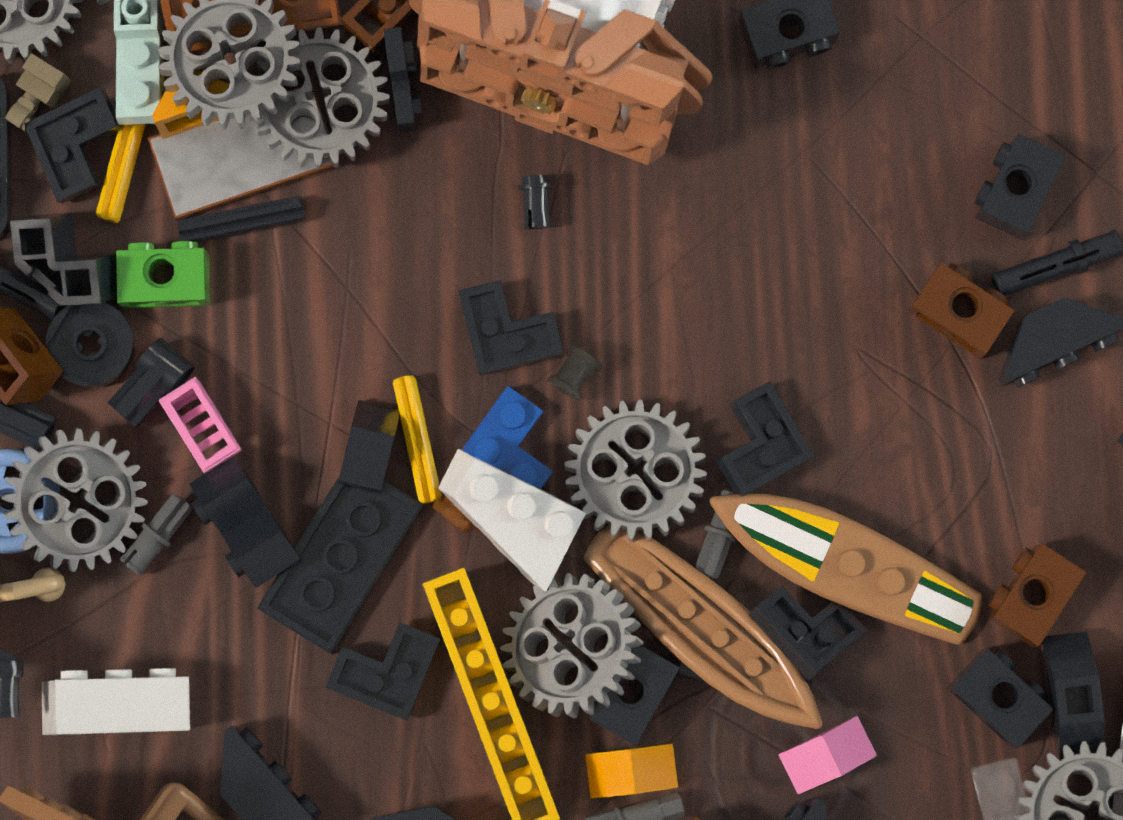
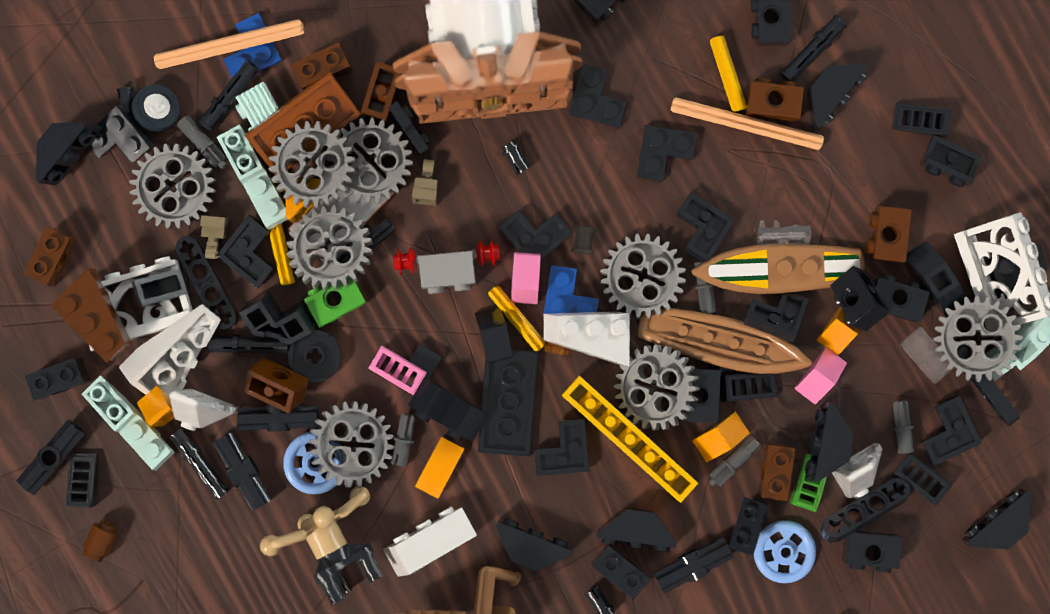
camera: 25 degrees left, 5 degrees up
(157, 374) = (360, 354): black piece -> none
(179, 228) = (327, 225): none -> light grey gear
(188, 602) = (439, 467): none -> light orange slope
(250, 433) = (425, 359): none -> black tile
(349, 312) = (447, 269): none -> light grey brick
(381, 180) = (426, 187): none -> dark tan piece
(459, 385) = (525, 278): none -> bright pink slope
(675, 702) = (726, 387): none -> black slope
(687, 180) = (589, 103): none -> black plate
(757, 290) = (660, 144): none -> black plate
(878, 516) = (786, 235): none -> clear plate
(897, 698) = (837, 333): none -> light orange slope
(905, 324) = (747, 123): none -> light nougat axle
(912, 237) = (728, 73): none -> yellow axle
(941, 665) = (859, 299): none -> black brick

